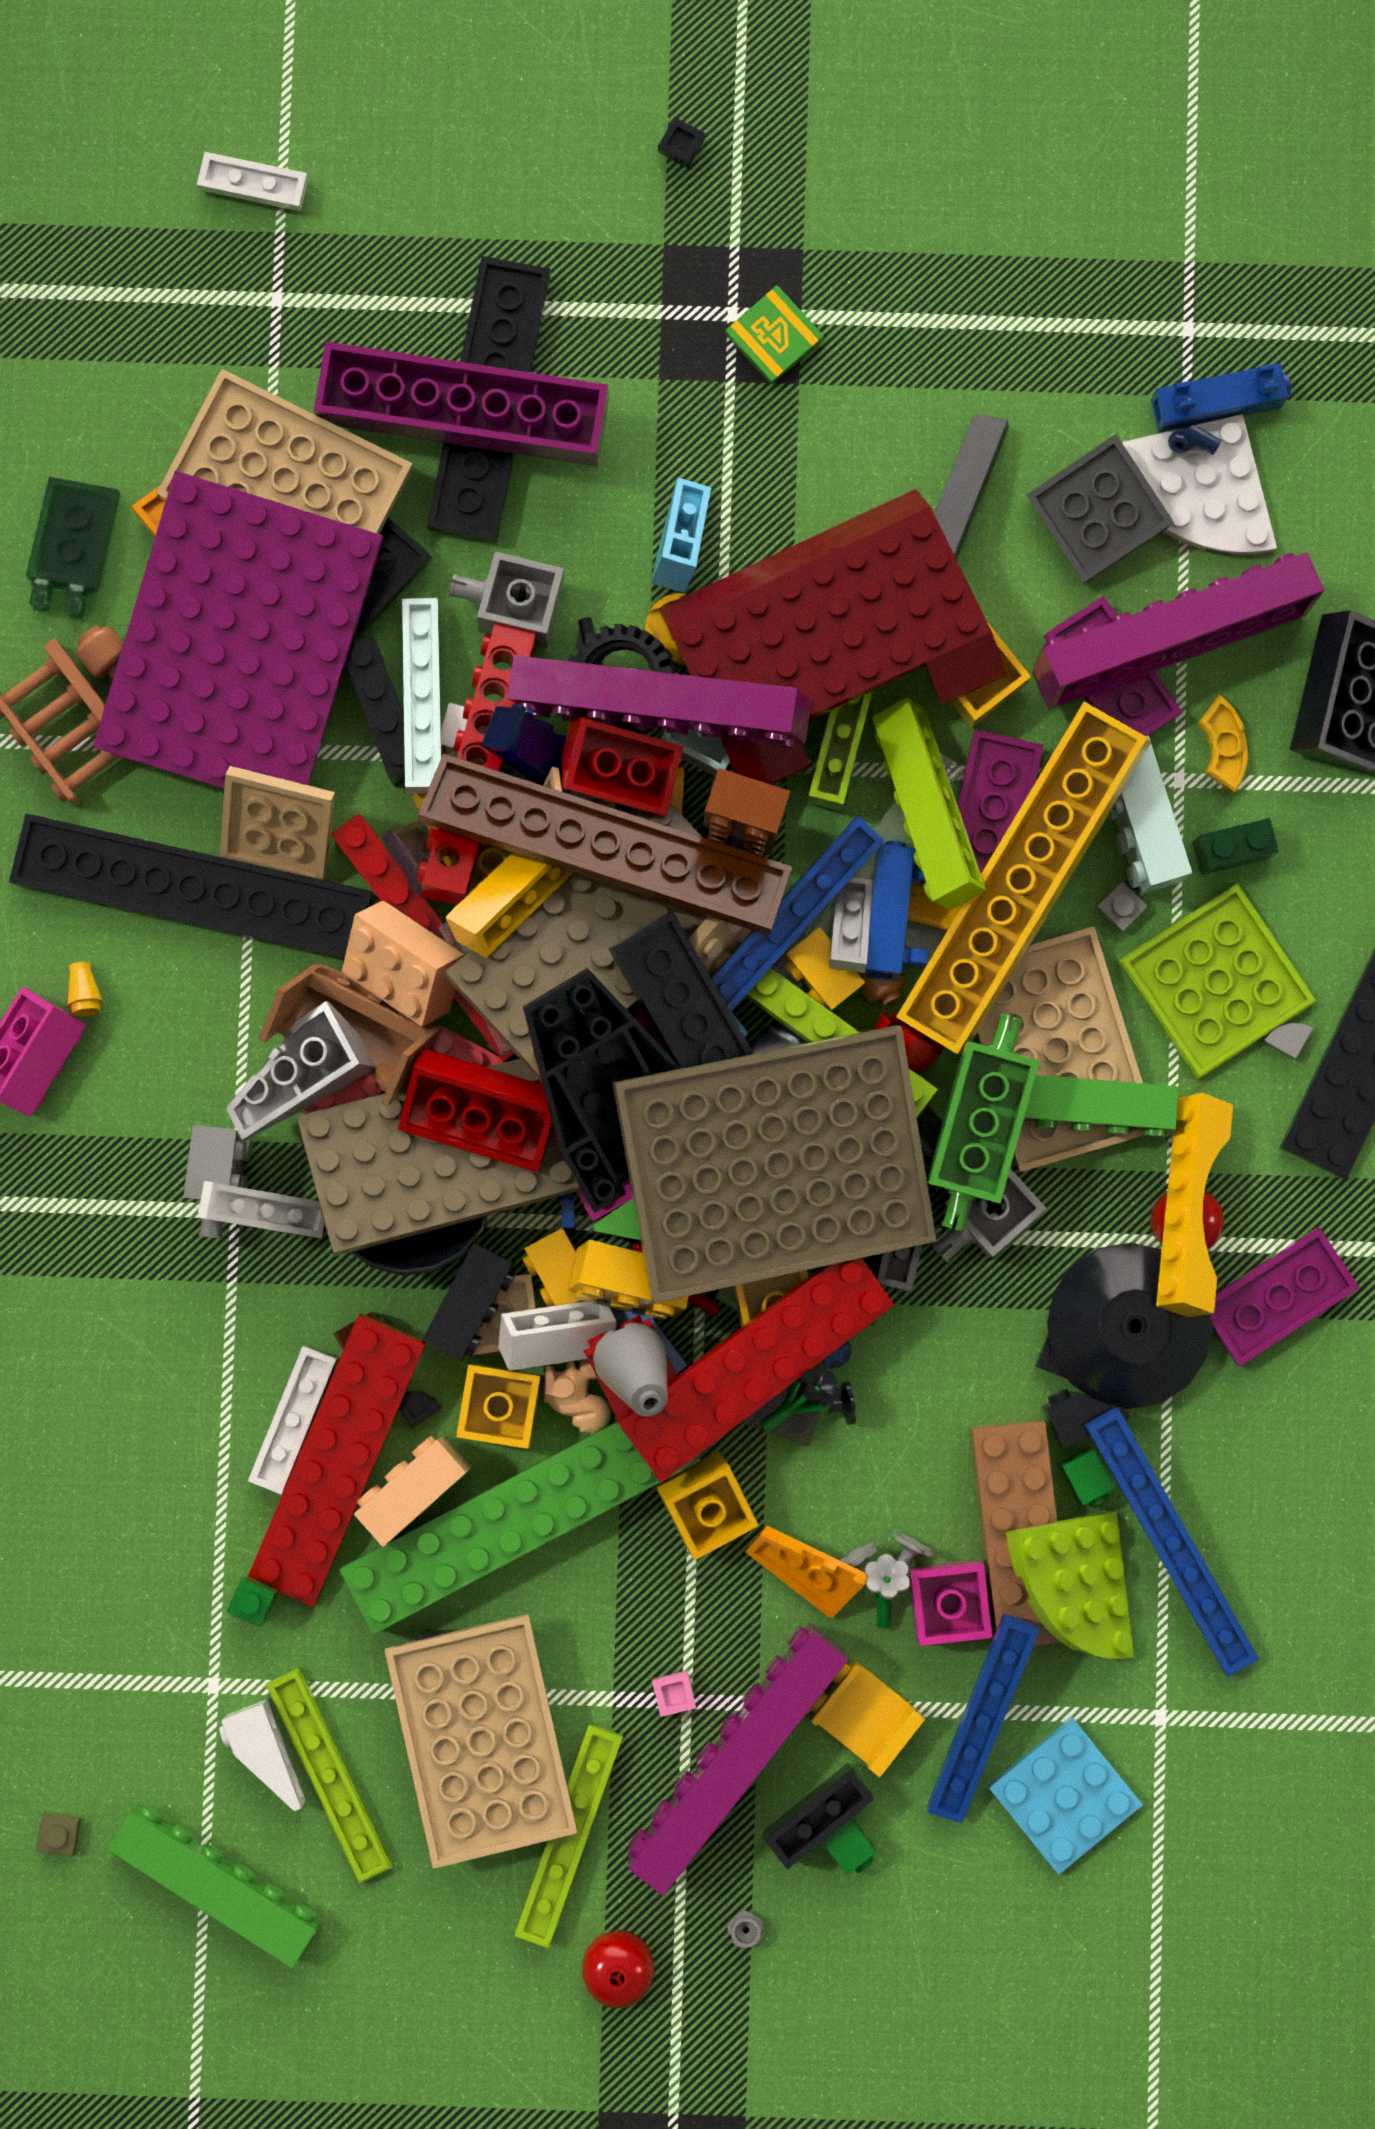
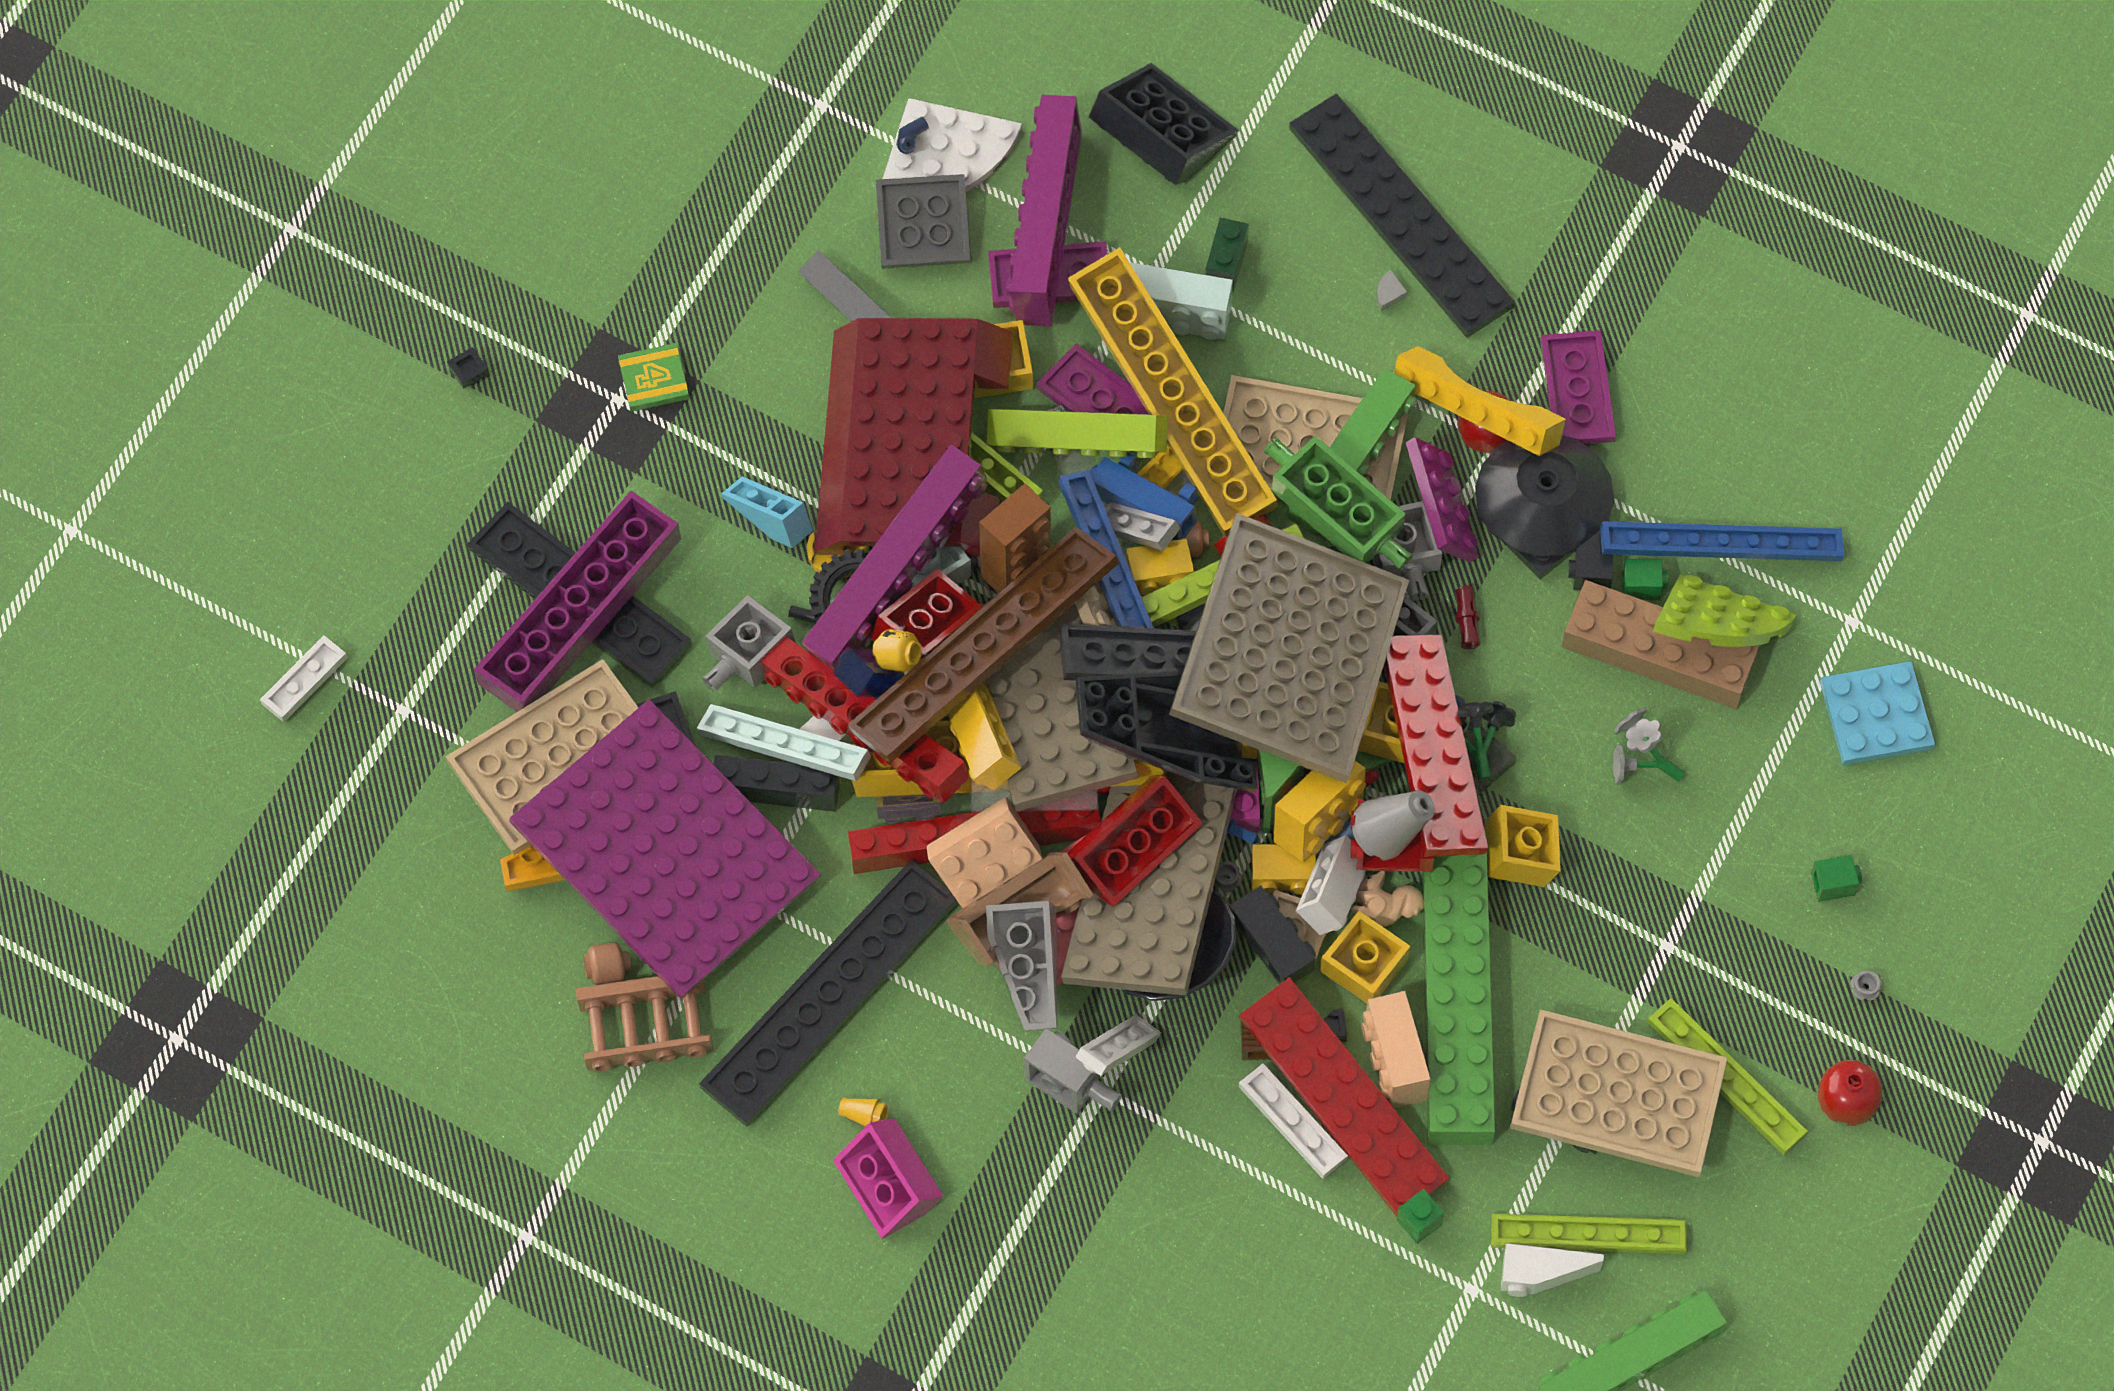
camera: 60 degrees left, 20 degrees down
(71, 544) = (504, 949): clear green tile -> none
(276, 823) = (820, 893): tan plate -> none
(525, 1226) = (1230, 869): none -> dark grey plate
(549, 759) = (897, 650): none -> yellow head
(674, 1693) = (1656, 947): bright pink plate -> none
(736, 1758) = (1727, 918): magenta brick -> none
(809, 1572) = (1611, 803): light orange wing -> none
(817, 1815) = (1802, 884): black brick -> none
(866, 1716) = (1746, 821): yellow panel -> none
(946, 1314) = (1467, 617): none -> dark red pin
(949, 1602) = (1689, 714): dark pink brick -> none
(982, 1718) = (1787, 730): blue plate -> none
(1062, 1222) = (1442, 500): none -> magenta plate
(1121, 907) = (1227, 353): light grey plate -> none
(1217, 981) = (1319, 318): lime tile -> none
(1220, 397) = (887, 106): blue brick -> none
(1226, 743) = (1146, 226): yellow tile -> none

